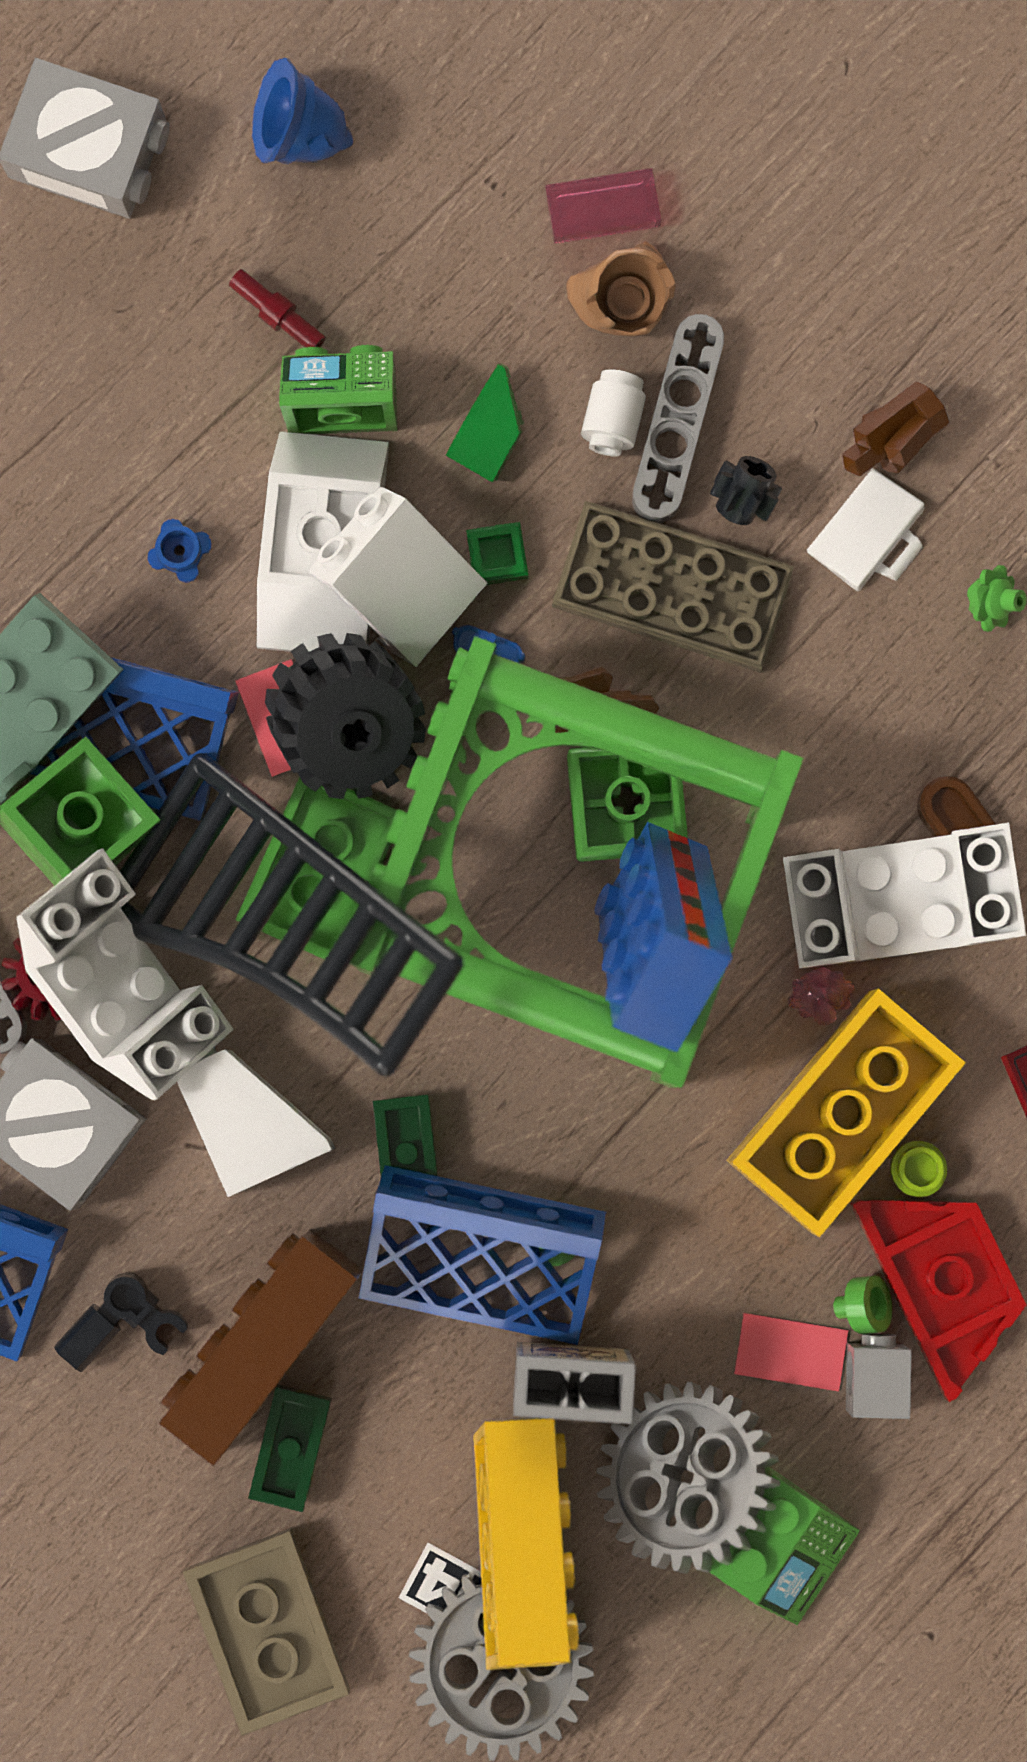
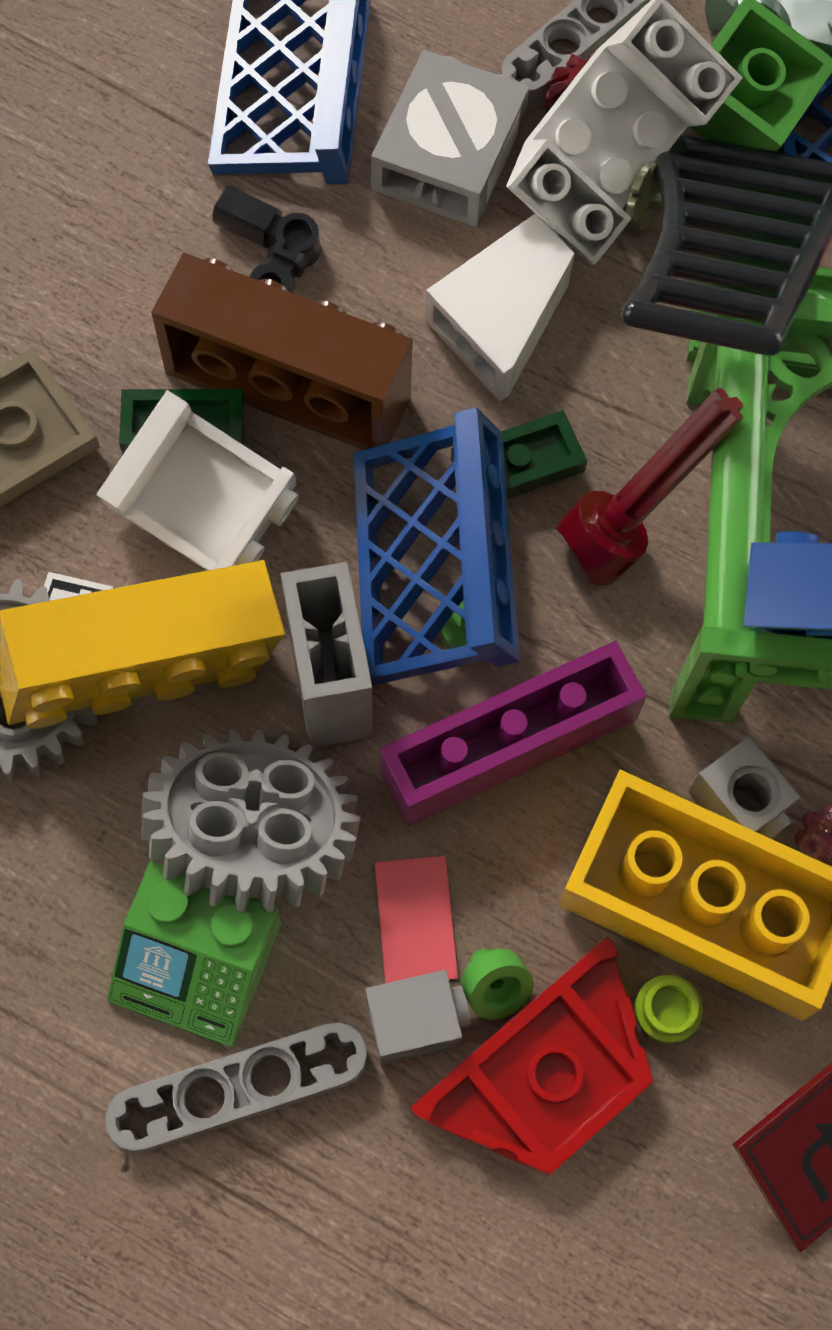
camera: 75 degrees right, 15 degrees down
(171, 962) = (644, 197): none -> olive plant
(372, 1448) = (198, 488): none -> white panel
(500, 1093) = (609, 528): none -> dark red piece
(667, 1238) = (511, 733): none -> magenta brick
(740, 1058) = (751, 769): none -> light grey brick
(902, 1532) = (234, 1076): none -> light grey beam

